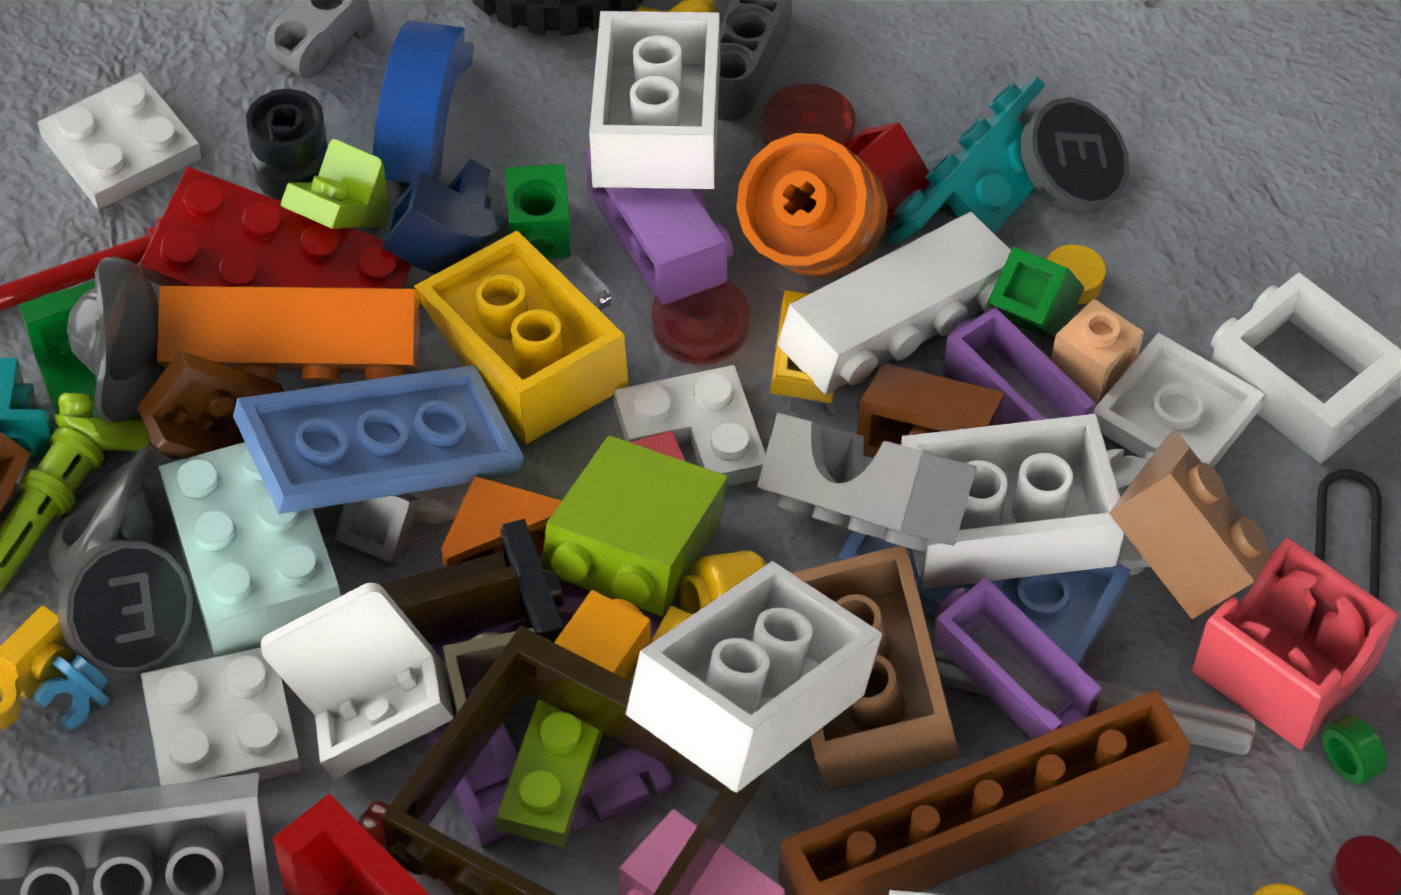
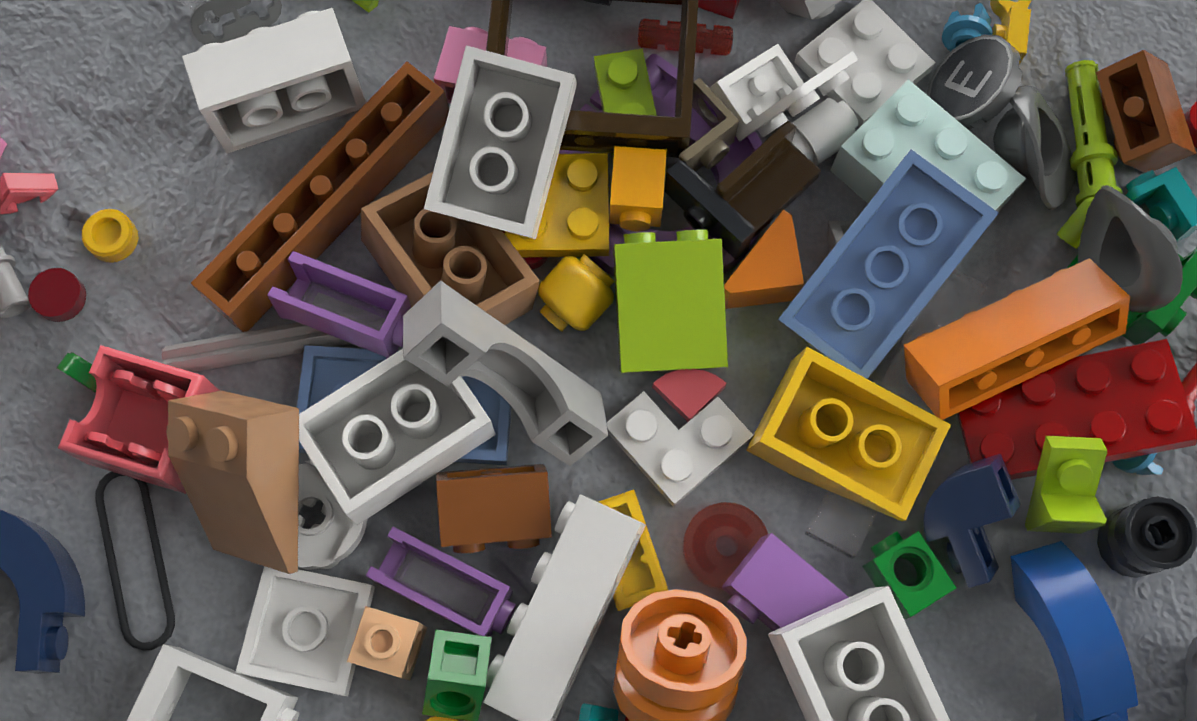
camera: 155 degrees right, 20 degrees up
(195, 403) = (1024, 230): reddish brown bracket -> none

